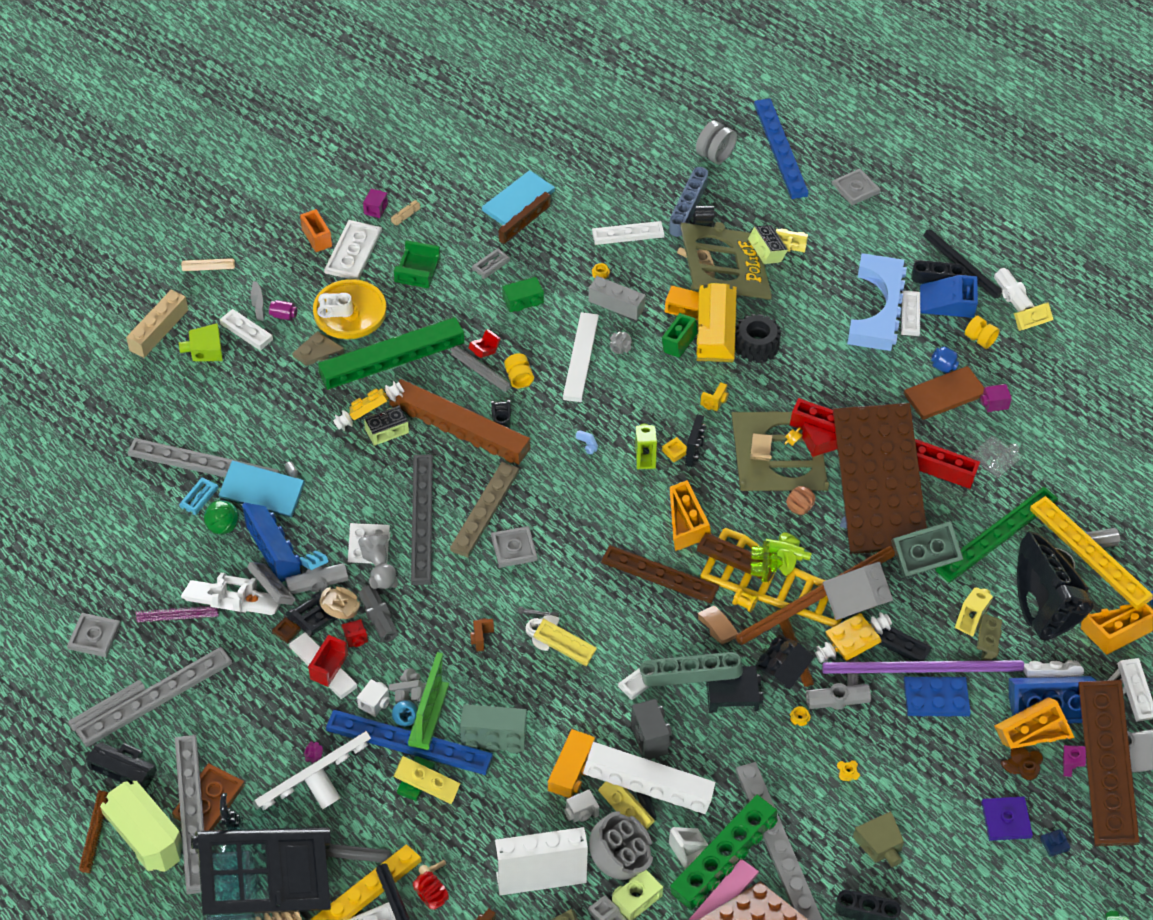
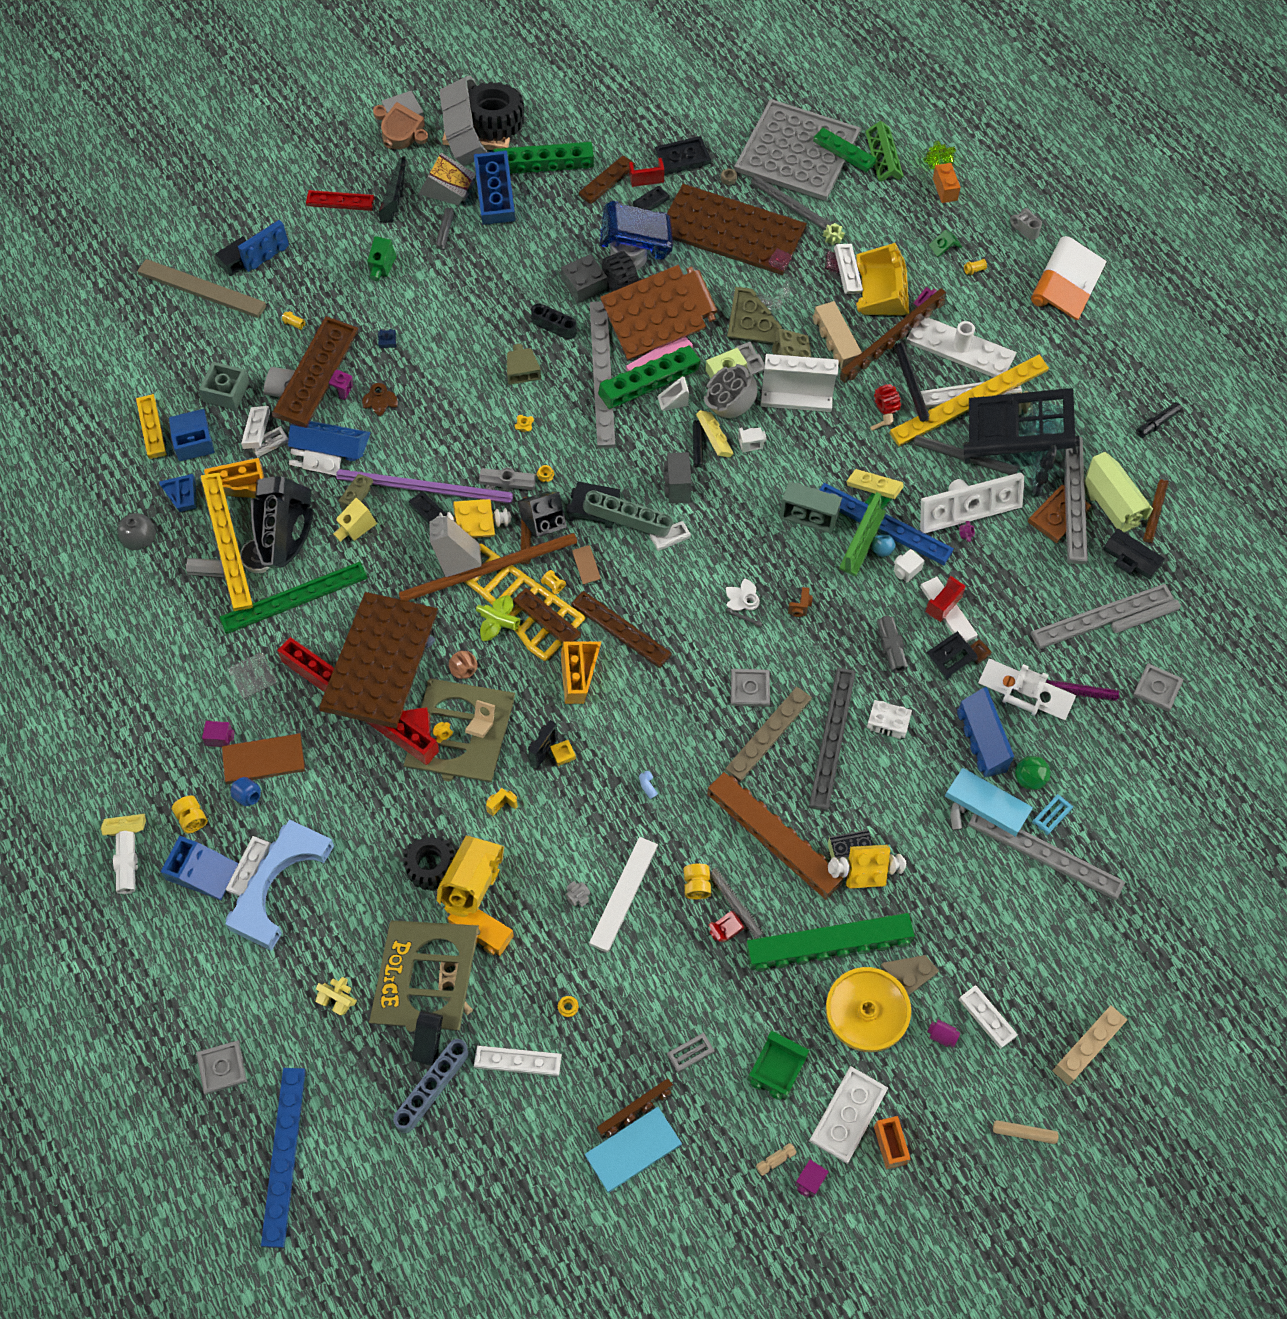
camera: 165 degrees left, 10 degrees up
(203, 344) = (1037, 1004): lime torso -> none
(257, 301) = (970, 1057): light grey slope -> none
(271, 583) = (983, 678): light grey tile -> none
(317, 579) = (944, 691): light grey piece -> none
(318, 560) = (949, 719): medium azure tile -> none
(336, 304) = (888, 1003): white piece -> none
(339, 602) = (926, 660): tan tile -> none
(355, 633) = (915, 631): red bracket -> none
(374, 551) = (885, 695): light grey animal -> none
(408, 684) = (876, 562): light grey hips -> none
(501, 412) = (728, 836): black piece -> none
(523, 294) = (666, 988): green brick -> none
(564, 642) = (728, 577): light yellow plate -> none
(570, 765) = (750, 473): light orange brick -> none
(616, 298) = (563, 956): light grey brick -> none
(645, 437) = (593, 750): lime torso -> none
(649, 778) = (692, 438): white brick -> none
(679, 335) = (512, 883): green brick -> none
(716, 142) = (364, 1164): light grey wheel -> none
(762, 568) = (524, 593): clear neon green hips -> none
(767, 244) = (366, 990): brick -> none
(926, 549) = (372, 575): sand green brick -> none
(931, 271) = (187, 899): black beam -> none
(936, 696) = (422, 465): blue plate -> none
(956, 258) = (159, 919): black axle -> none
(1006, 818) = (415, 363): dark purple plate -> none
(1035, 725) = (360, 414): light orange wedge -> none

